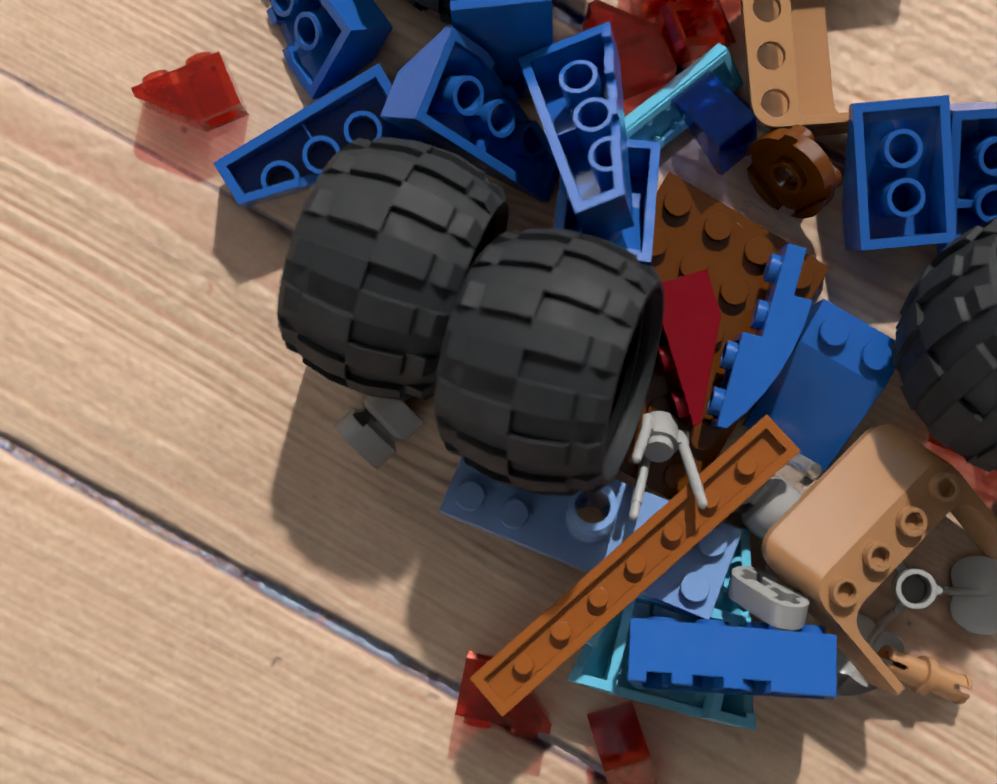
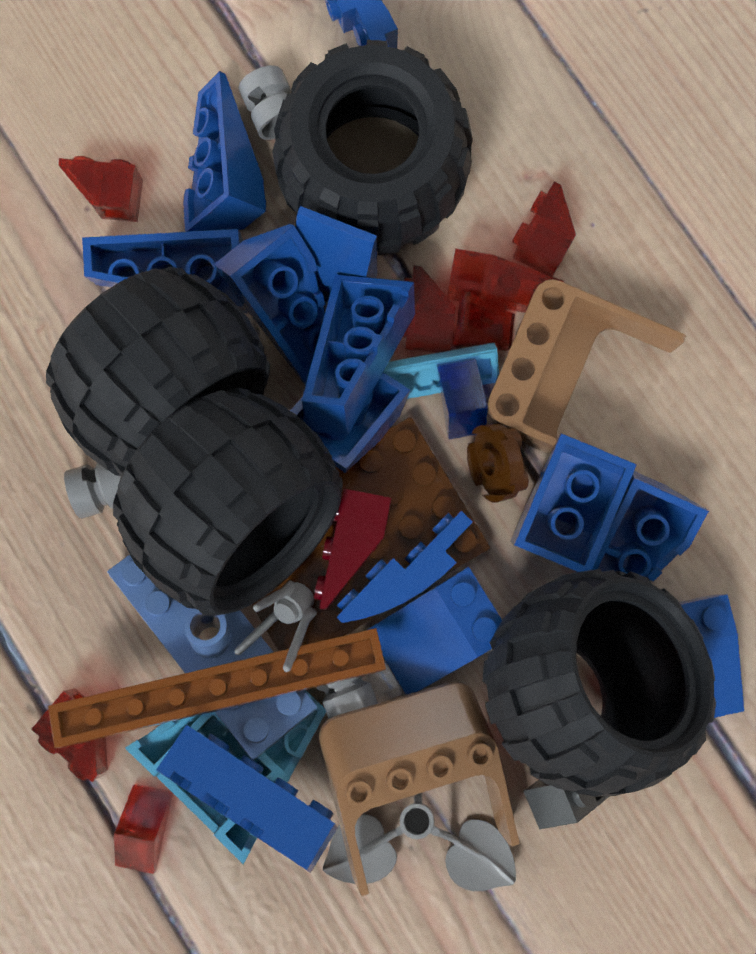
camera: 30 degrees right, 5 degrees down
(768, 598) = (304, 767): light grey beam -> none
(925, 675) = (397, 893): medium nougat pin -> none

